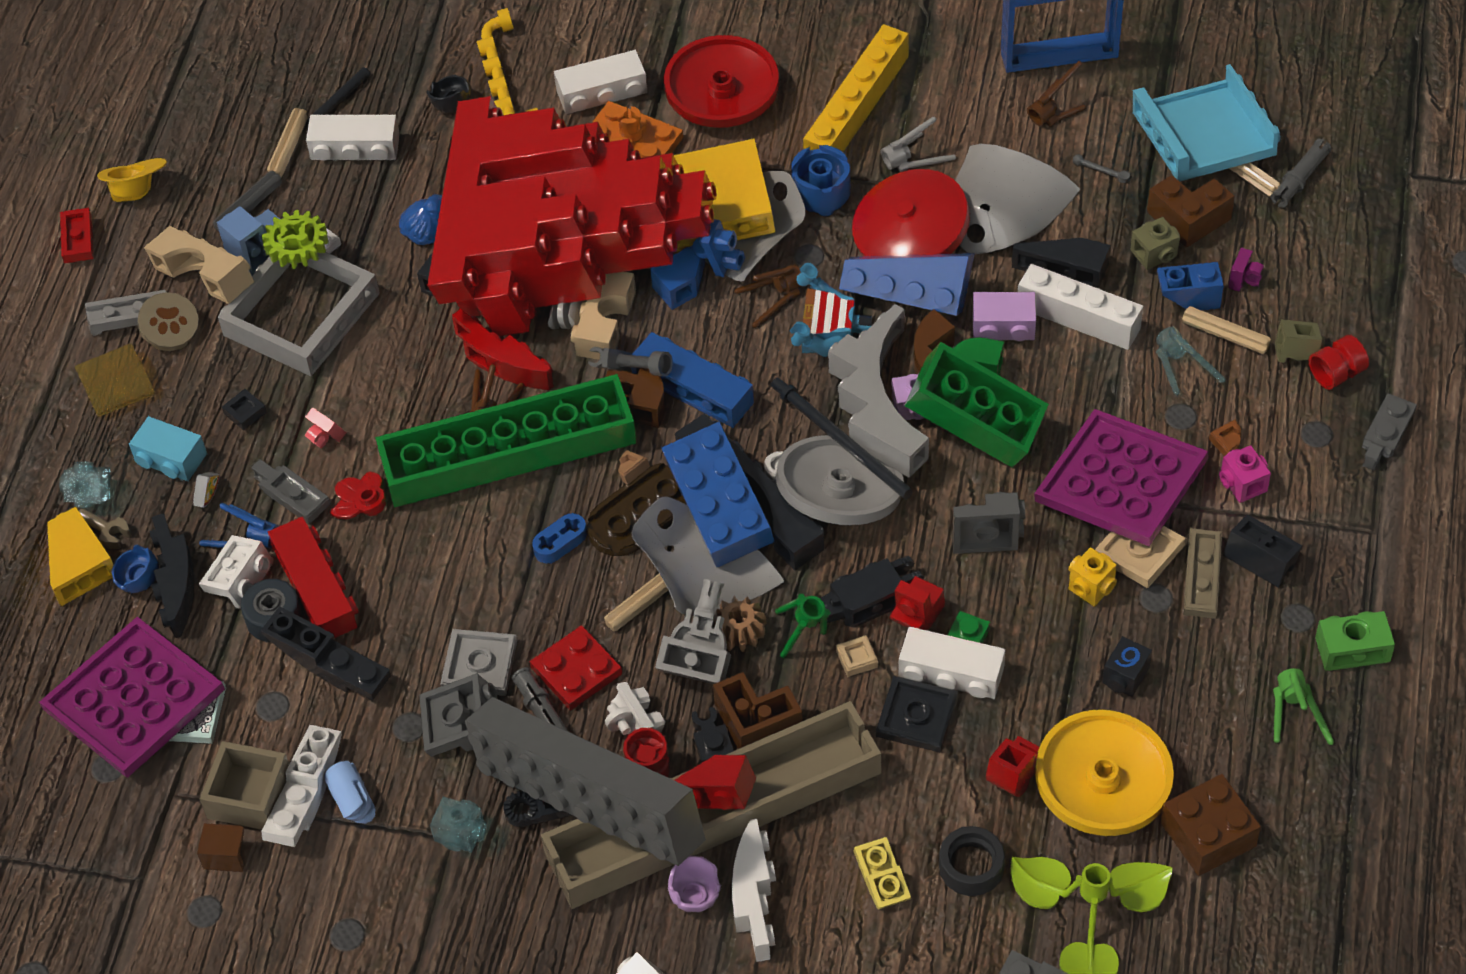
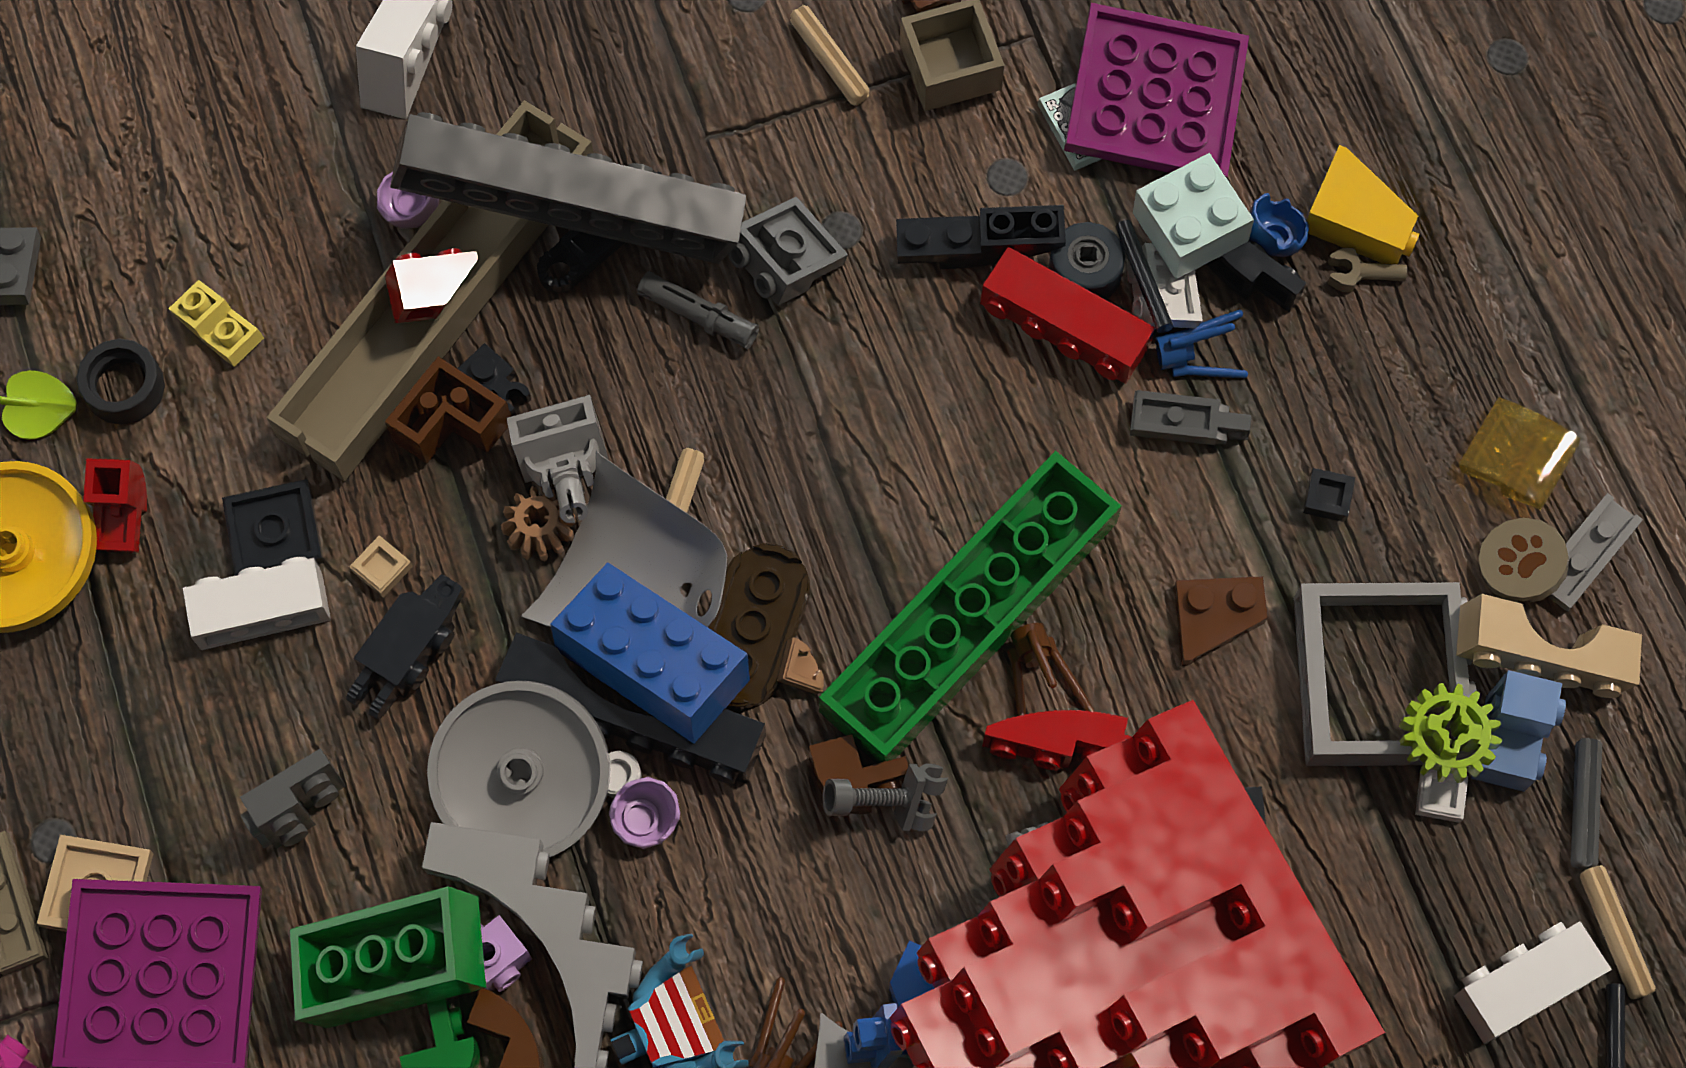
camera: 145 degrees right, 15 degrees up
(85, 484) = (1422, 292): clear light blue brick -> none
(167, 449) = (1372, 391): medium azure brick -> none
(188, 575) = (1192, 215): none -> light aqua brick
(205, 488) = (1288, 373): light grey tile -> none
(247, 567) = (1144, 276): none -> black bar
(304, 786) = (895, 90): white slope -> none
(322, 429) = (1211, 519): coral tile -> none
(325, 848) = (829, 55): none -> tan axle
(349, 792) = (843, 113): light blue arm -> none
(359, 496) = (1108, 457): red plate -> none
(363, 384) = (1216, 612): none -> reddish brown wing
(421, 220) = (1334, 893): blue hair -> none
(458, 824) = (698, 131): clear light blue brick -> none
(481, 653) = (814, 335): light grey tile -> none
(561, 539) = (816, 528): blue beam -> none
(576, 667) = (699, 384): red plate -> none
(594, 327) = (972, 835): tan arch -> none
(628, 711) = (574, 346): white hips -> none
(648, 749) = (542, 303): red wheel -> none
(701, 382) = (800, 834): blue brick -> none
(751, 886) = (344, 223): white slope -> none
(777, 430) = (644, 812): none -> lavender hair
(790, 394) = (556, 839): black bar -> none
(808, 614) = (442, 543): green plant -> none
(917, 603) = (331, 648): red brick -> none
(969, 627) = (262, 665): green plate -> none
(1092, 576) = (143, 816): yellow brick -> none
(1127, 666) = (41, 706): black brick -> none

